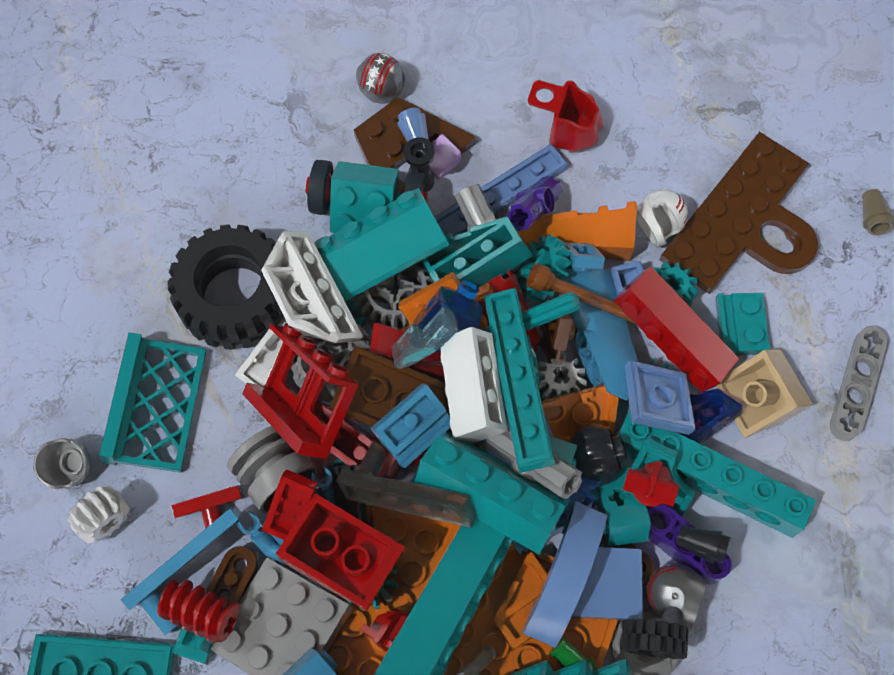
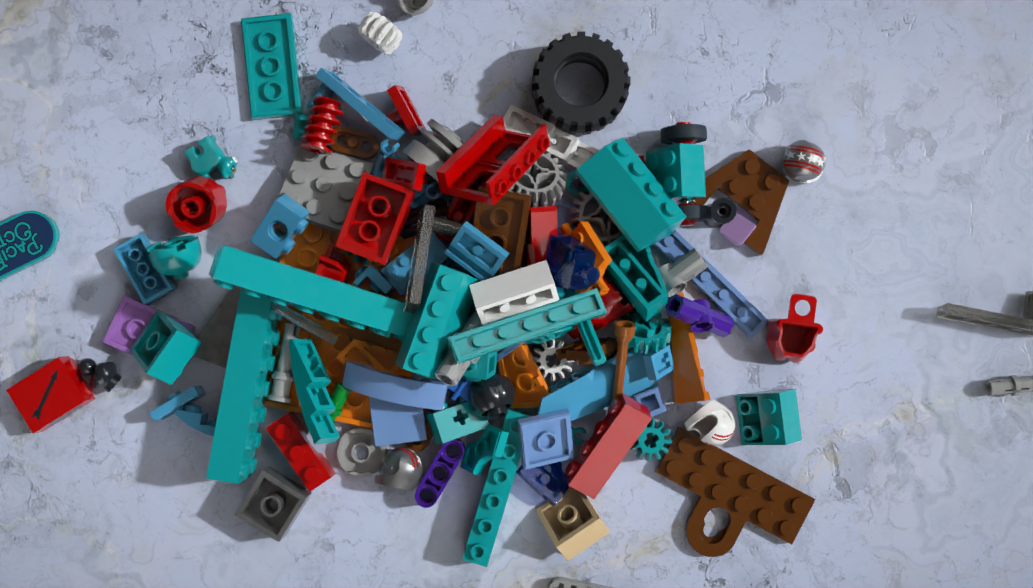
camera: 85 degrees right, 20 degrees up
(125, 397) = (475, 25): teal fence -> none
(308, 290) = (574, 147): white wedge -> none
(412, 124) = (753, 201): medium blue cone -> none
(414, 532) = (399, 269): none -> dark azure piece
(417, 574) = (378, 283): none -> dark azure bracket
(419, 343) = (542, 247): clear light blue slope -> none
(652, 485) = (472, 441): red piece -> none
(655, 638) = (361, 457): black tyre -> none
(661, 160) = (769, 417): none -> teal slope
(705, 543) = (436, 485): black cone -> none
(742, 322) = (631, 500): teal plate -> none

